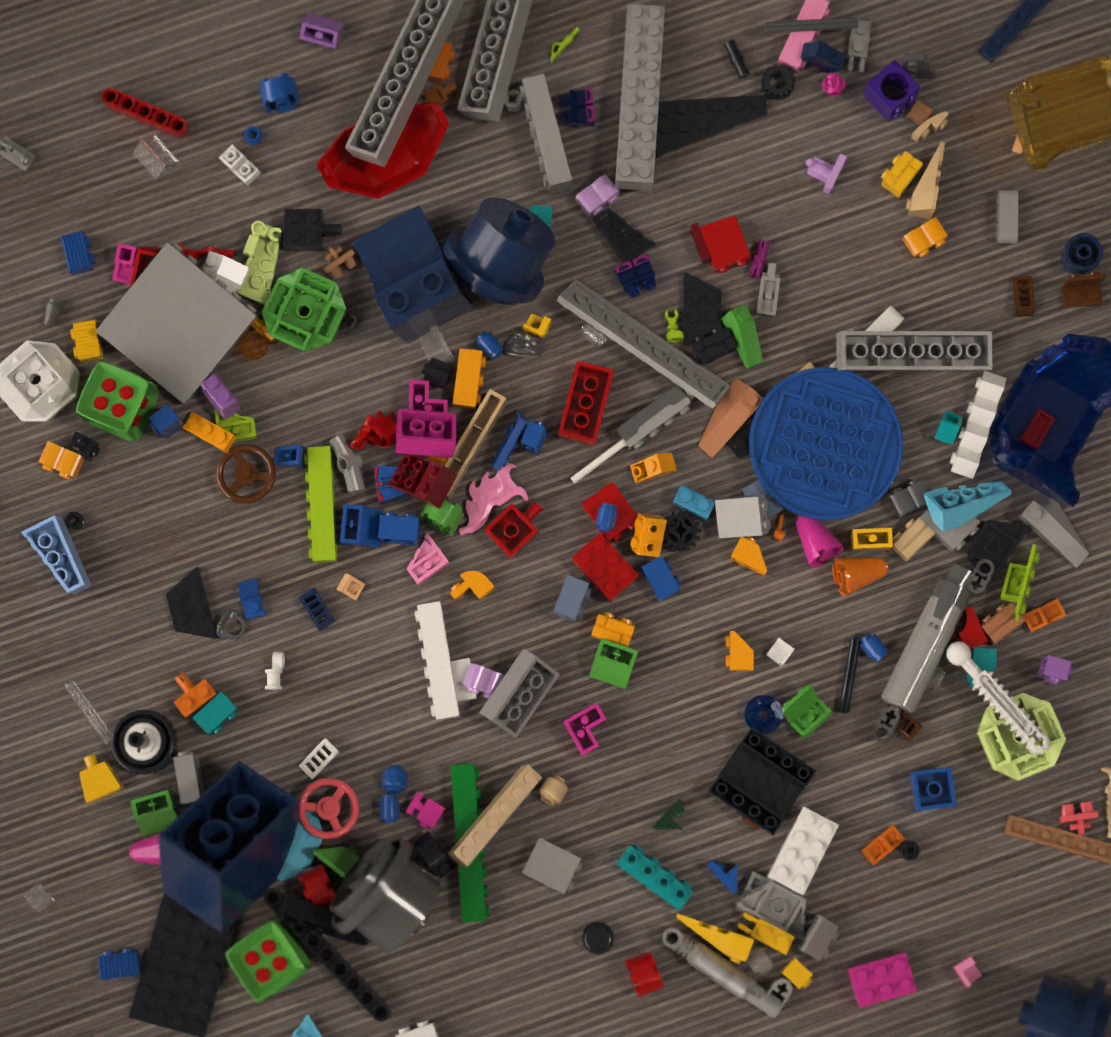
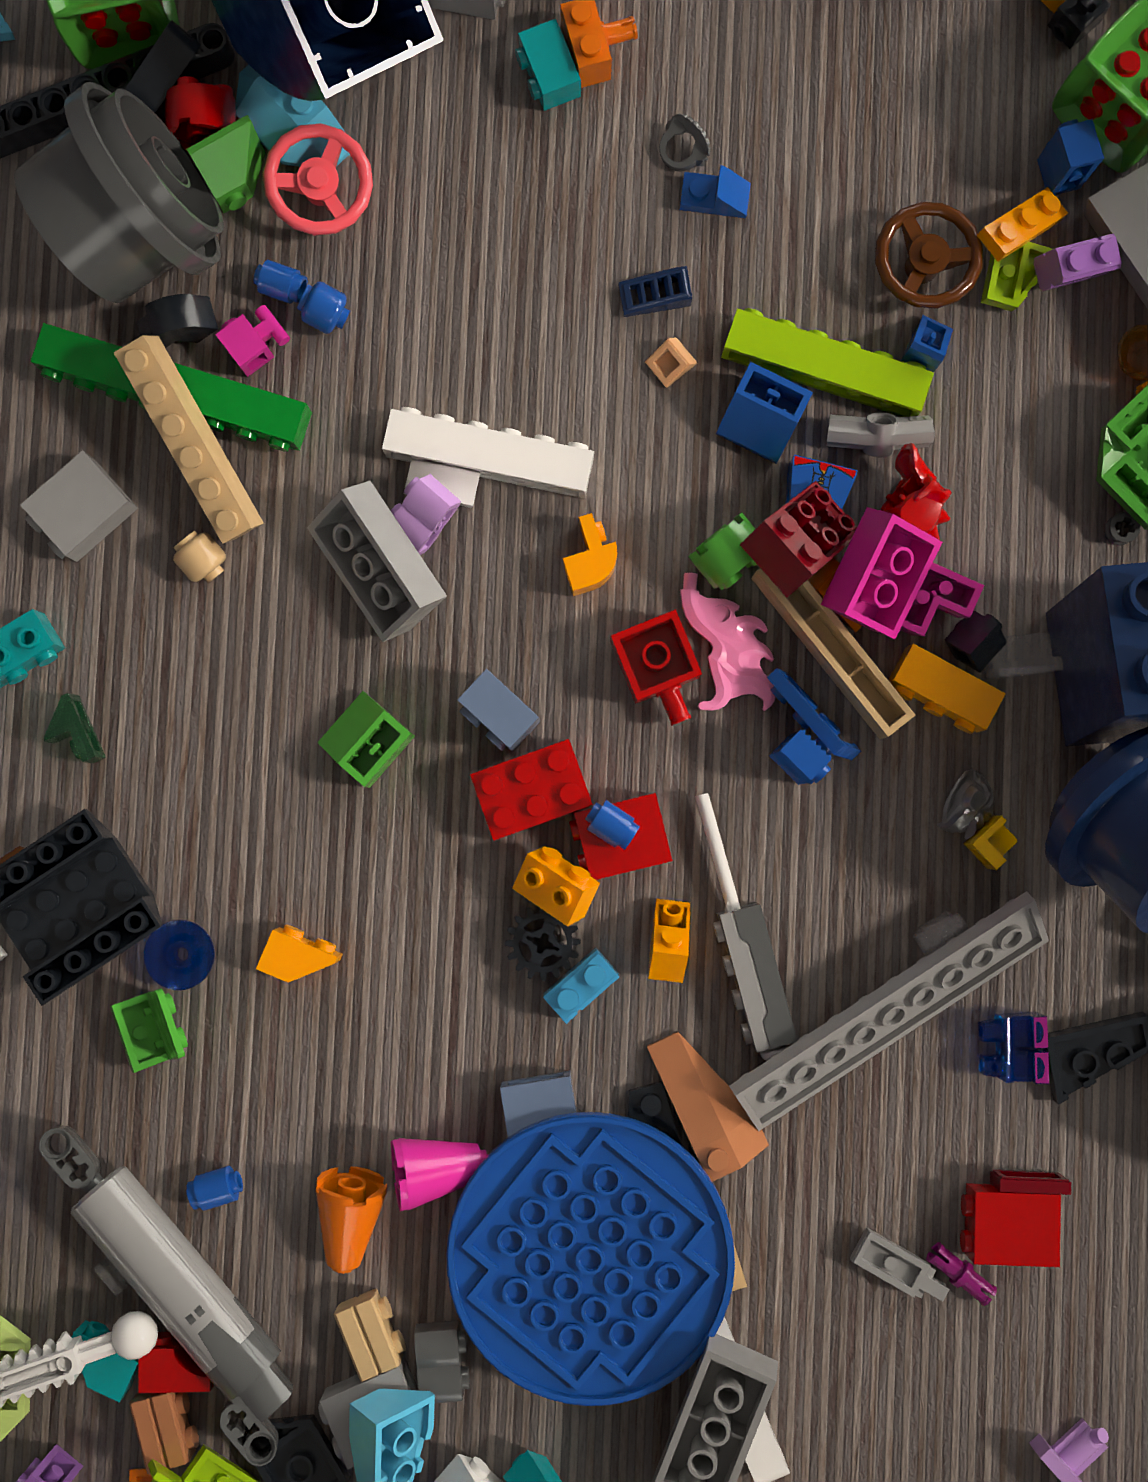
camera: 105 degrees right, 5 degrees up
(191, 607) = (741, 94): black wing -> none
(273, 674) = (590, 193): white connector -> none
(334, 752) = (419, 227): white slope -> none
(399, 529) = (736, 462): blue brick -> none
(427, 561) = (662, 500): bright pink wing -> none
(489, 345) = (990, 747): blue brick -> none
(580, 726) = (282, 641): dark pink brick -> none
(586, 403) = (825, 871): red brick -> none
(613, 629) = (421, 761): light orange brick -> none
(660, 578) = (475, 876): blue brick -> none
(673, 335) = (885, 1069): lime piece -> none
(700, 308) = (913, 1134): black wing -> none
(713, 346) = (839, 1131): black brick -> none
(742, 516) = (522, 1059): light grey brick -> none
(744, 335) = (842, 1192): bright green slope -> none
(749, 555) = (455, 1042): light orange slope -> none
(779, 534) = (473, 1105): orange hand -> none
(780, 652) = (270, 1026): white panel -> none
(849, 675) = (186, 1126): black axle -> none
(871, 539) = (394, 1265): yellow brick -> none
(917, 726) = (54, 1202): reddish brown slope -> none

